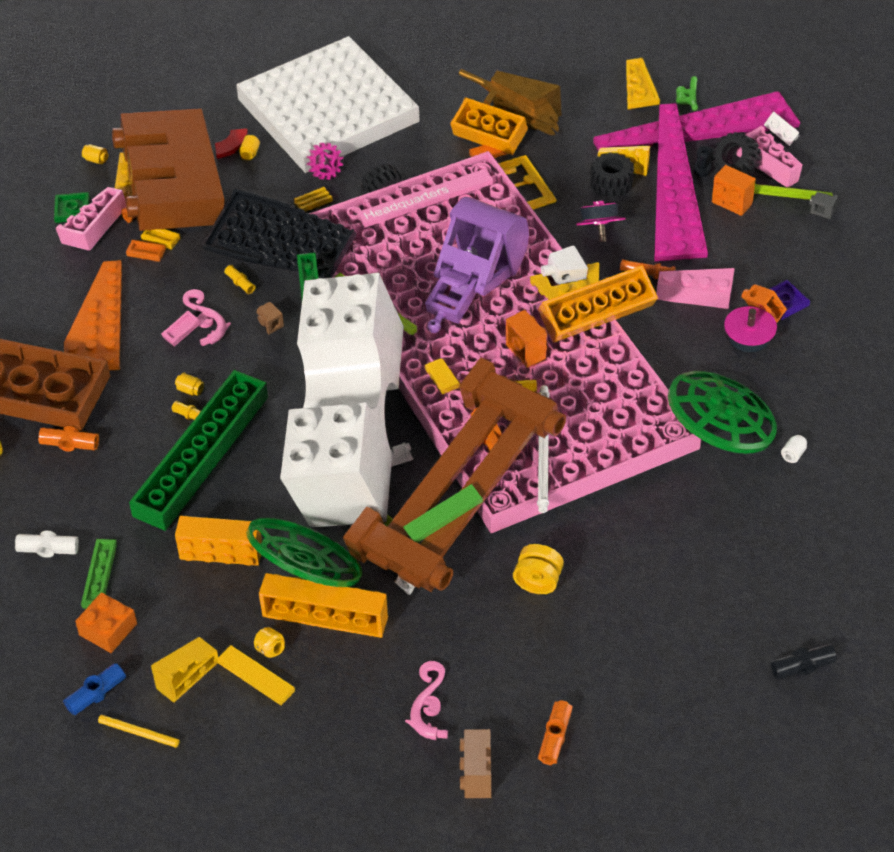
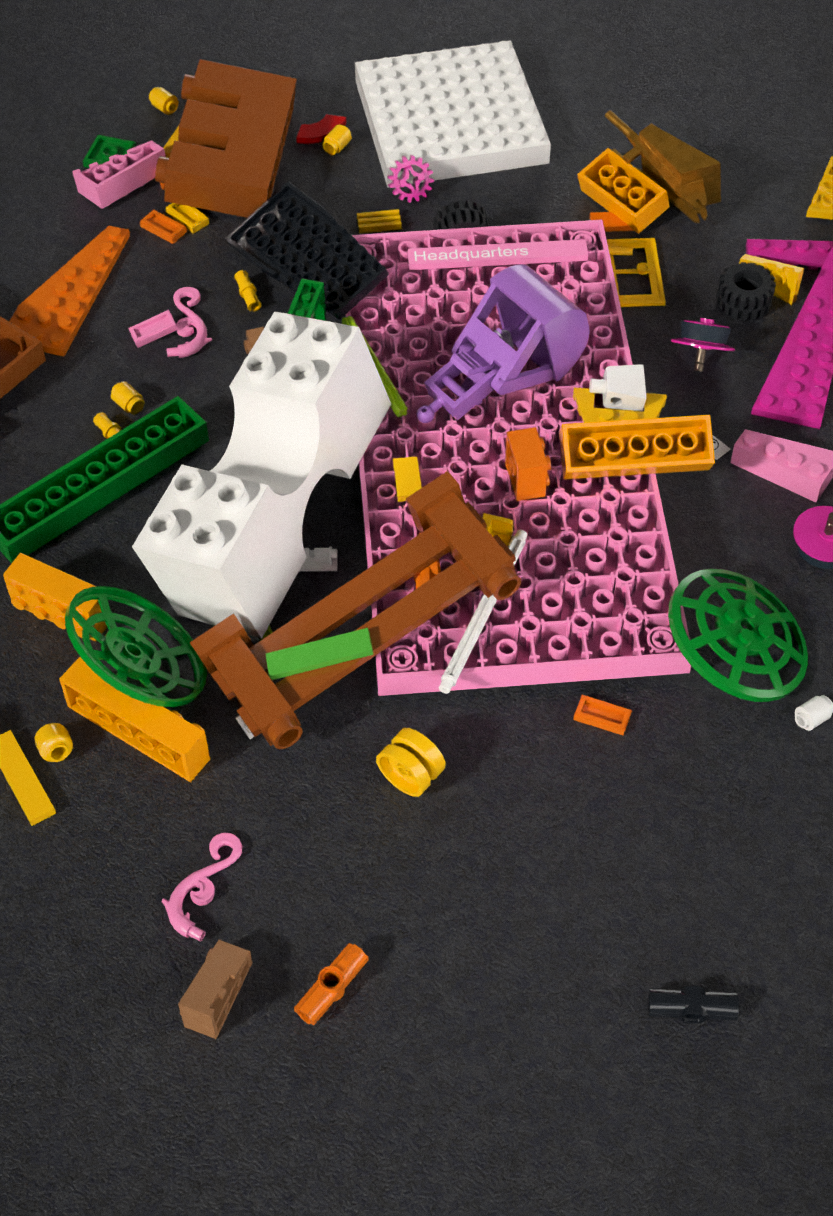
camera: 20 degrees right, 5 degrees up
(651, 270) = (731, 419): orange pin -> none
(651, 497) = (602, 715): none -> orange tile

